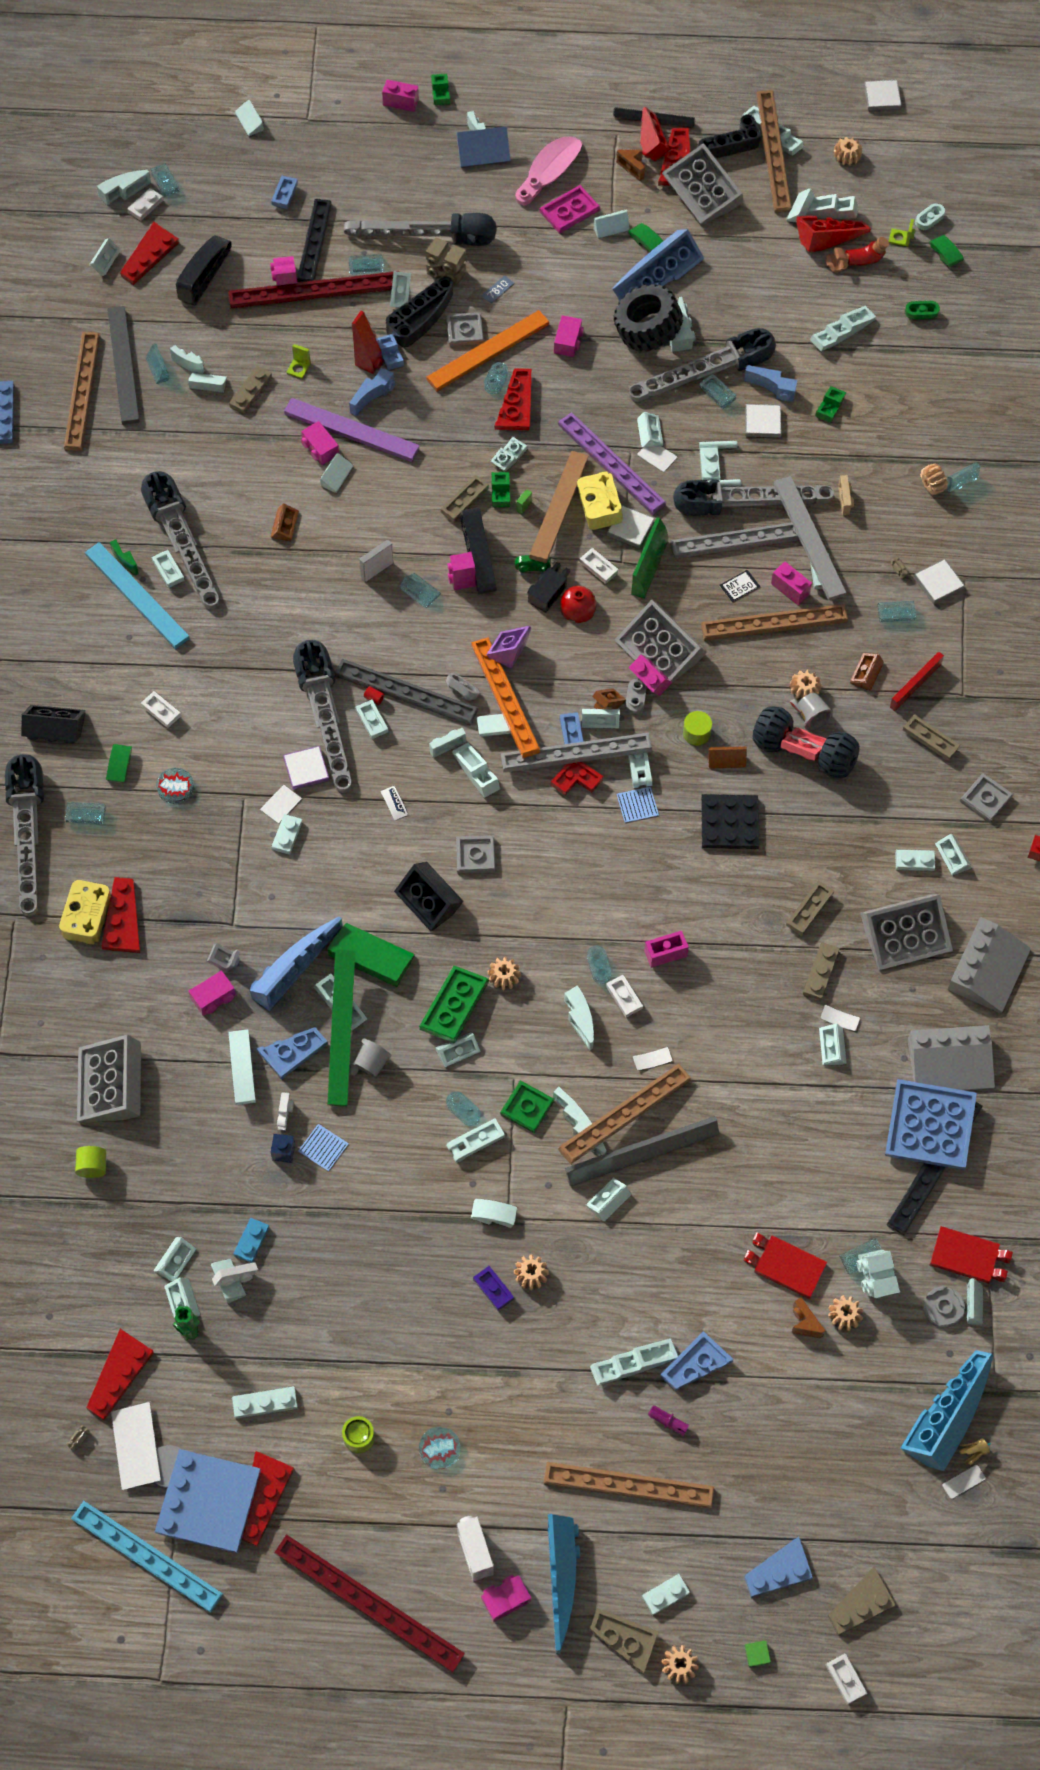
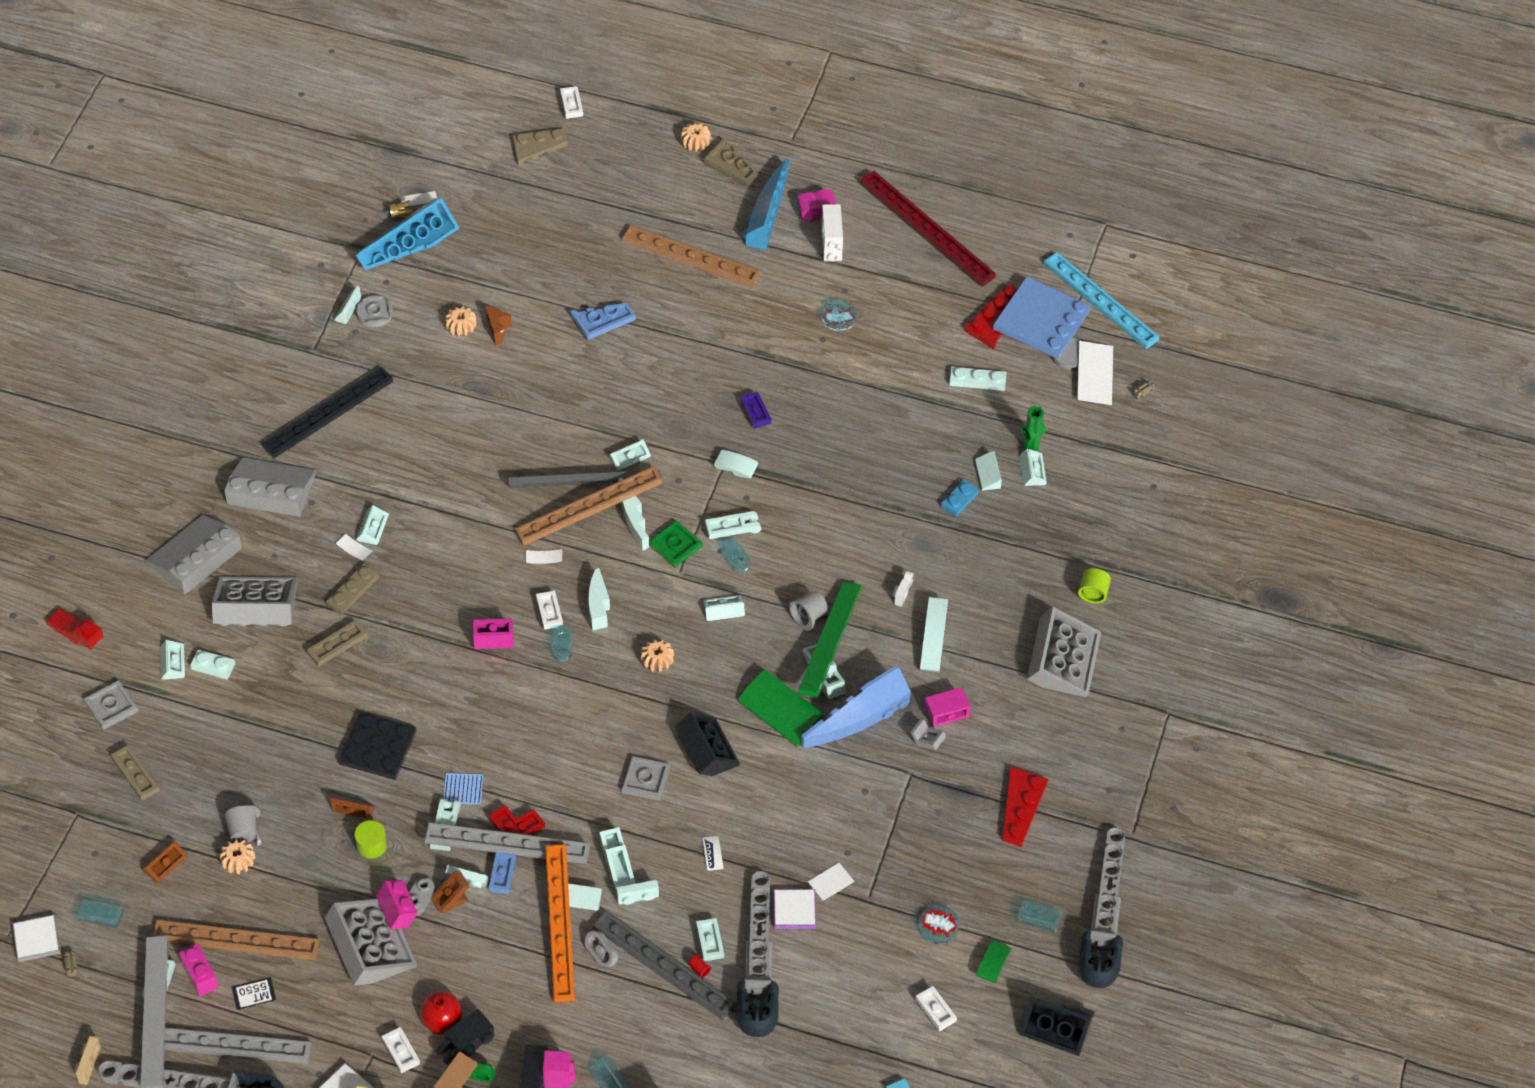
camera: 165 degrees left, 10 degrees down
(91, 913) = (1058, 814): light yellow axle -> none
(120, 1370) = (1095, 431): red wing -> none
(175, 1259) = (1033, 501): light aqua slope -> none
(233, 1274) = (981, 464): white plate -> none
(282, 1148) = (913, 557): dark blue brick -> none
(287, 834) = (833, 845): light aqua plate -> none
(291, 1053) = (882, 638): medium blue wing -> none
(323, 1147) = (874, 558): light blue sticker -> none
(358, 1434) = (904, 333): lime piece -> none
(454, 1004) = (714, 640): green tile -> none
(509, 646) = (535, 973): medium lavender slope -> none
(528, 1279) = (718, 412): light nougat gear -> none
(634, 1362) = (648, 332): light aqua slope -> none
(649, 559) = (344, 1036): green slope -> none
(665, 1594) = (689, 183): light aqua plate -> none
(668, 1420) = (641, 286): magenta axle -> none
(757, 1653) = (632, 133): bright green tile -> none
(780, 1570) = (589, 176): medium blue wing -> none
(786, 1265) = (494, 370): red tile -> none
(835, 754) = (264, 787): black plate -> none
(851, 1257) = (427, 357): clear light blue plate -> none
(878, 1273) = (422, 329): light aqua brick -> none
(916, 681) = (119, 831): red tile -> none
(931, 1124) = (317, 435): medium blue plate -> none
(969, 1256) = (334, 339): red tile -> none

